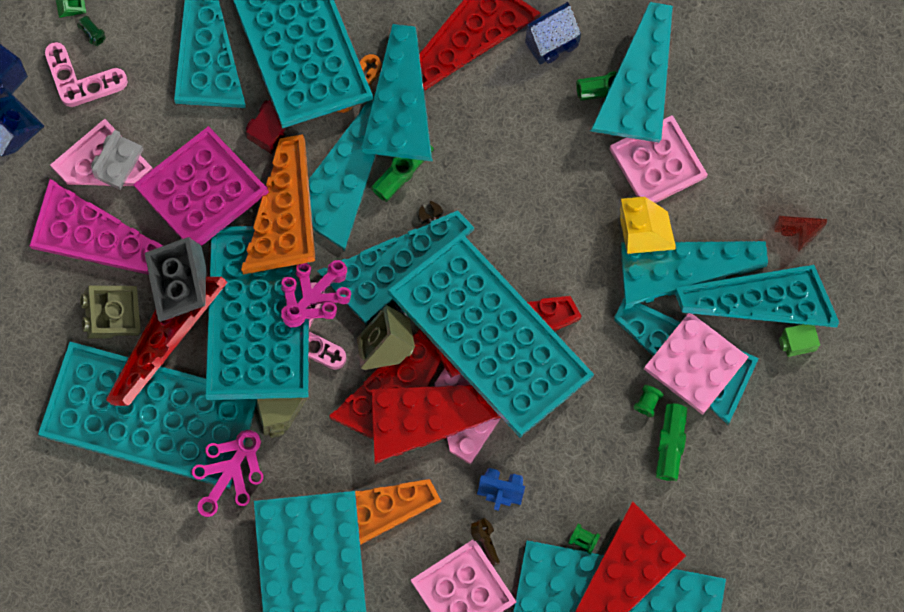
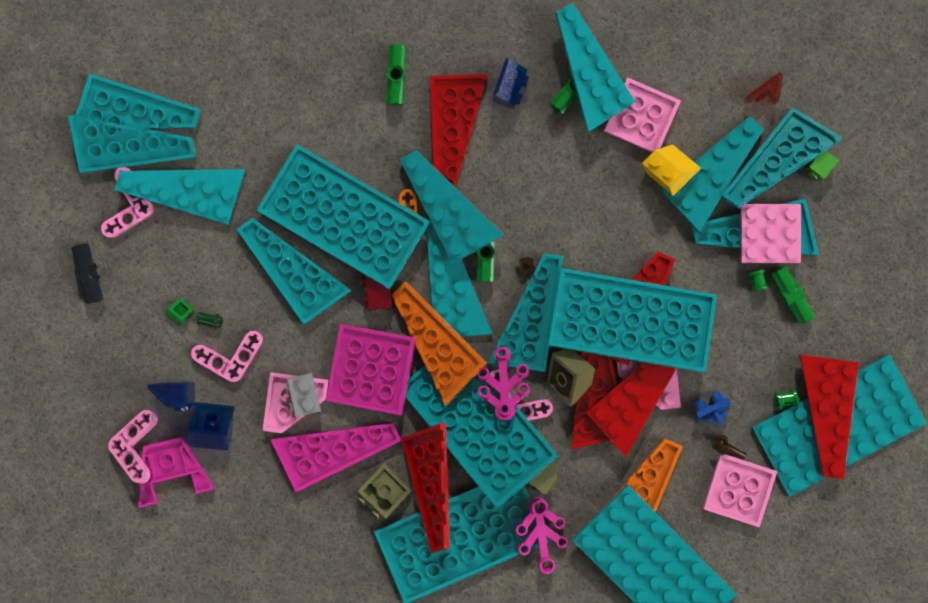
camera: 30 degrees left, 15 degrees up
(177, 278) = (412, 445): dark grey slope -> none

